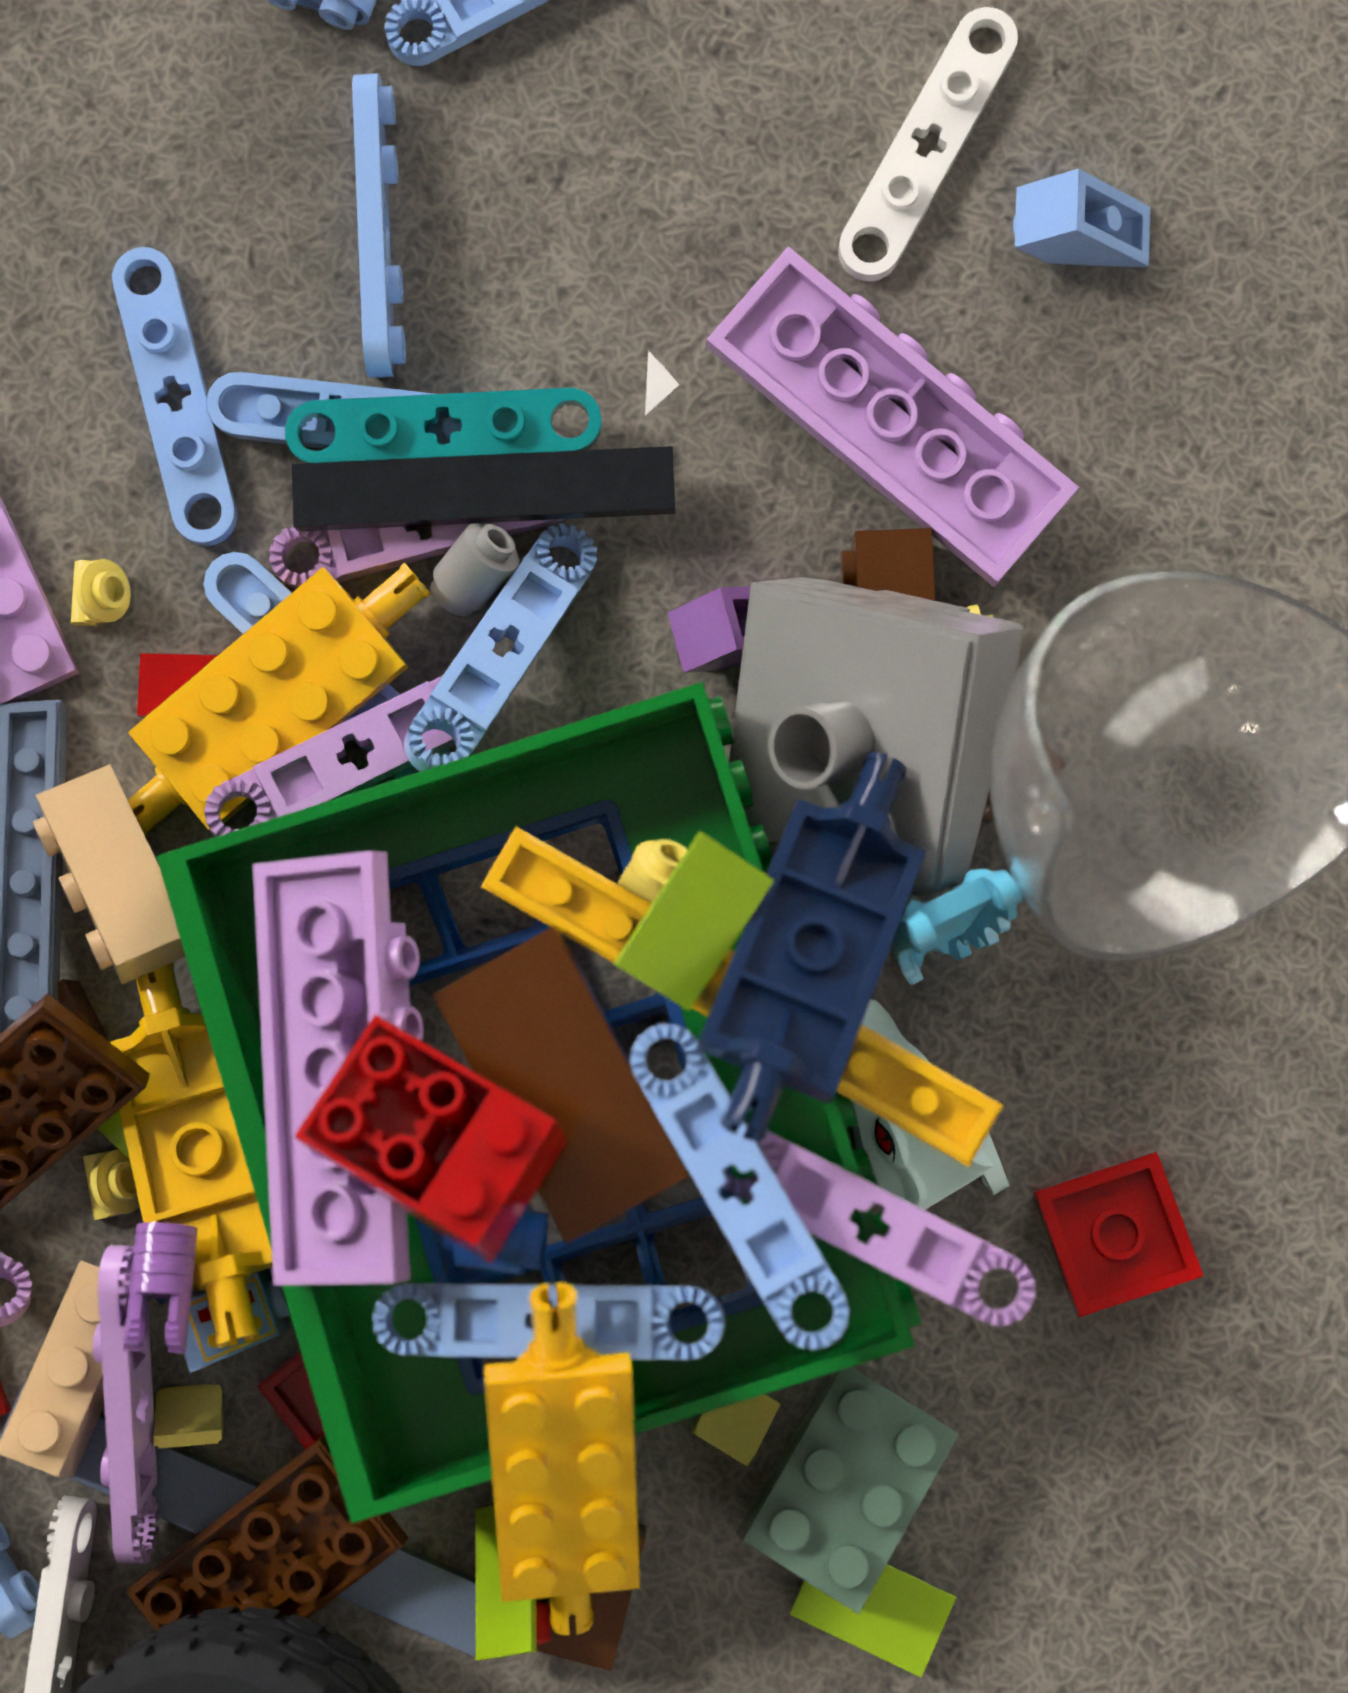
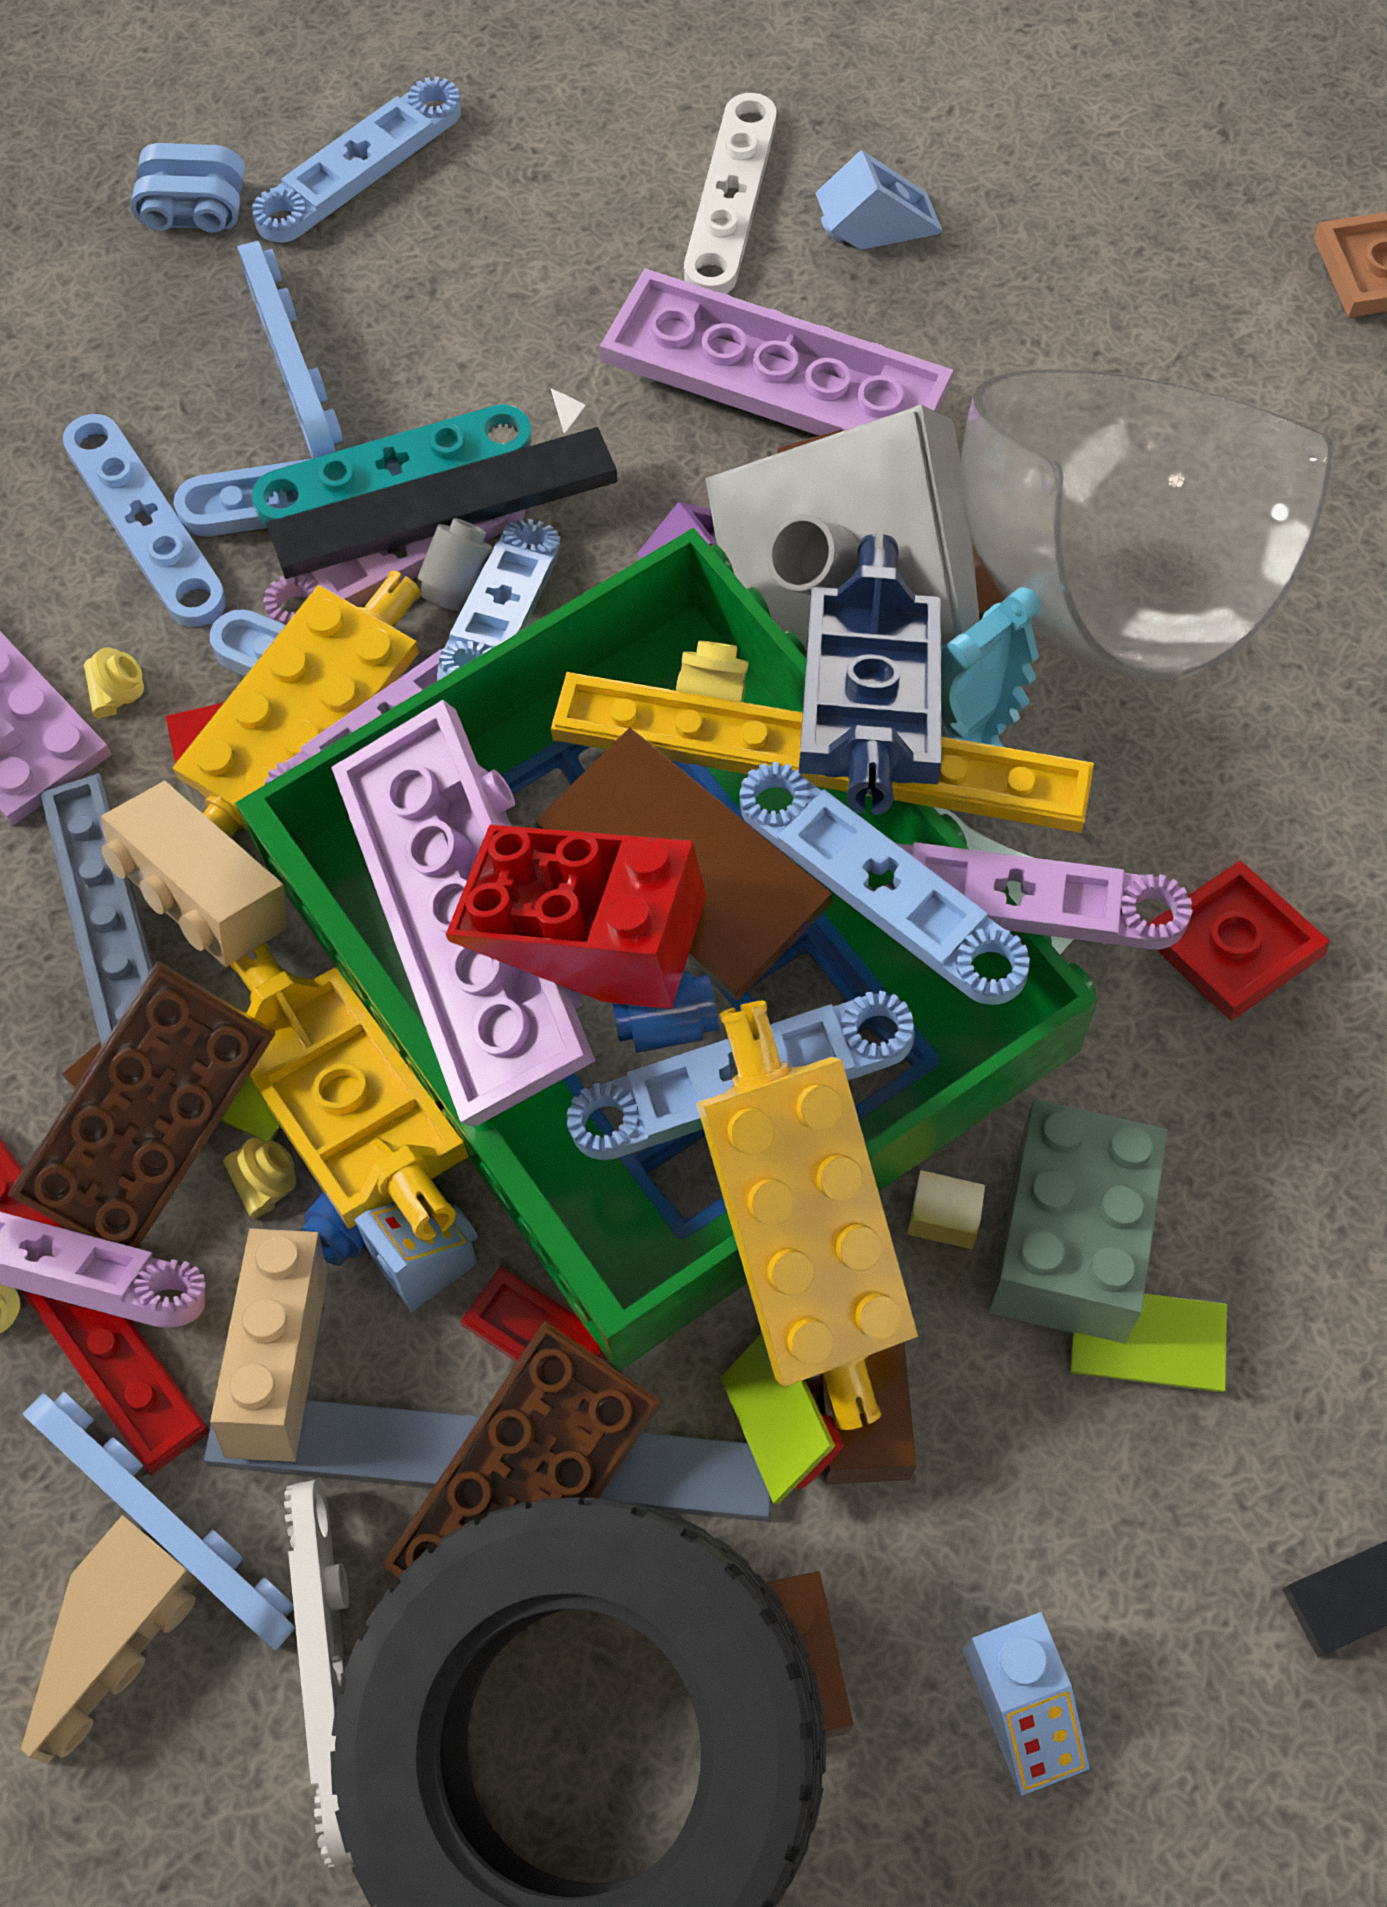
camera: 20 degrees left, 20 degrees down
(130, 1454) = (352, 1409): lavender piece -> none
(161, 1270) = (341, 1181): medium lavender hinge -> none
(188, 1416) = (401, 1372): light yellow slope -> none
(694, 921) = (758, 677): lime piece -> none

